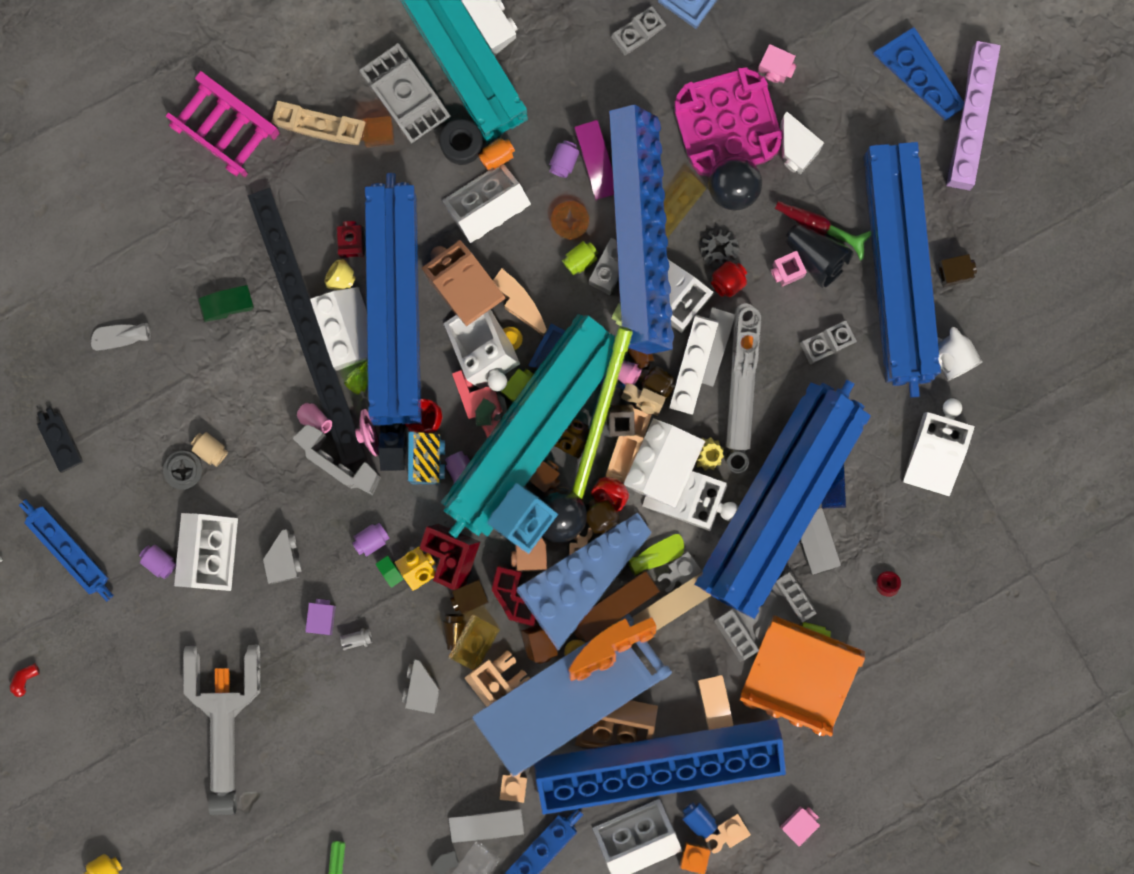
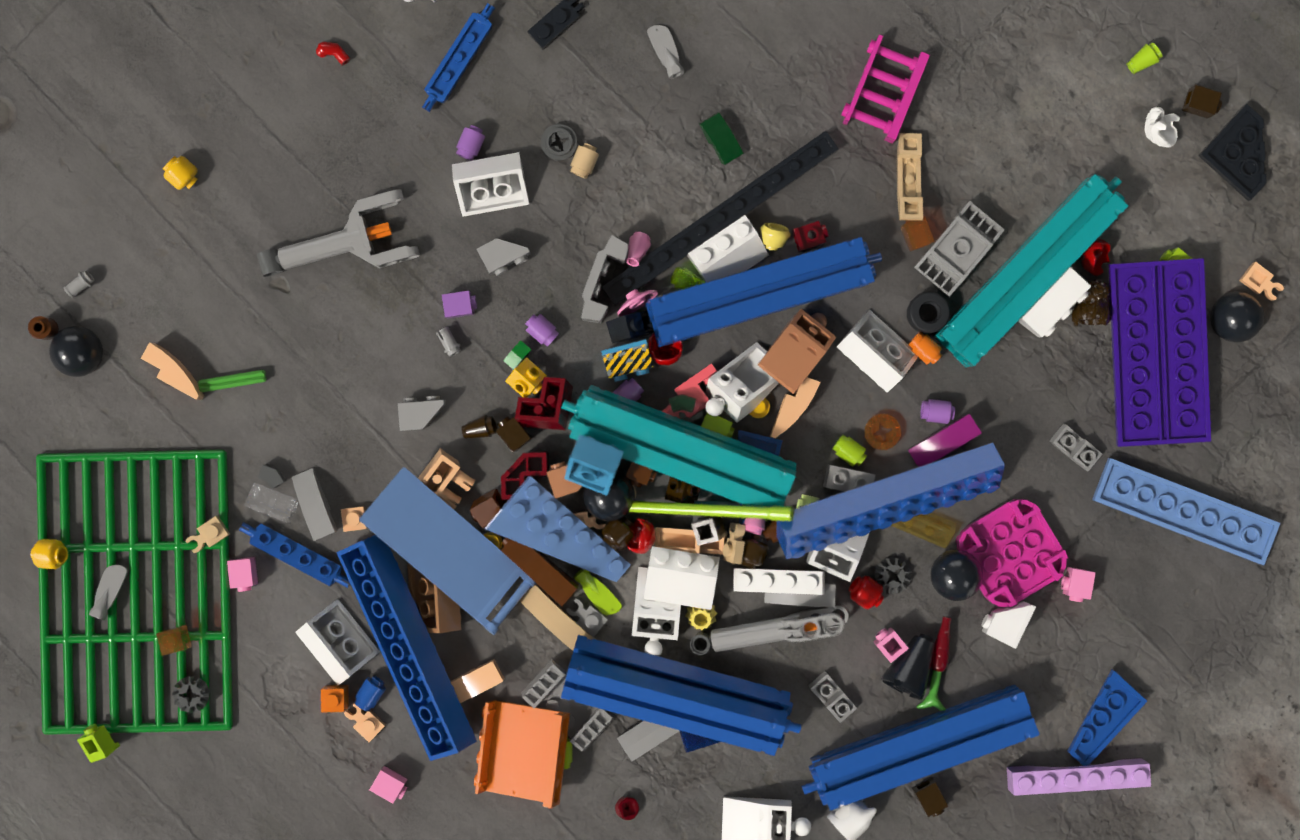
camera: 75 degrees right, 5 degrees up
(474, 642) = (473, 449): clear yellow slope -> none
(601, 650) = (496, 567): orange slope -> none

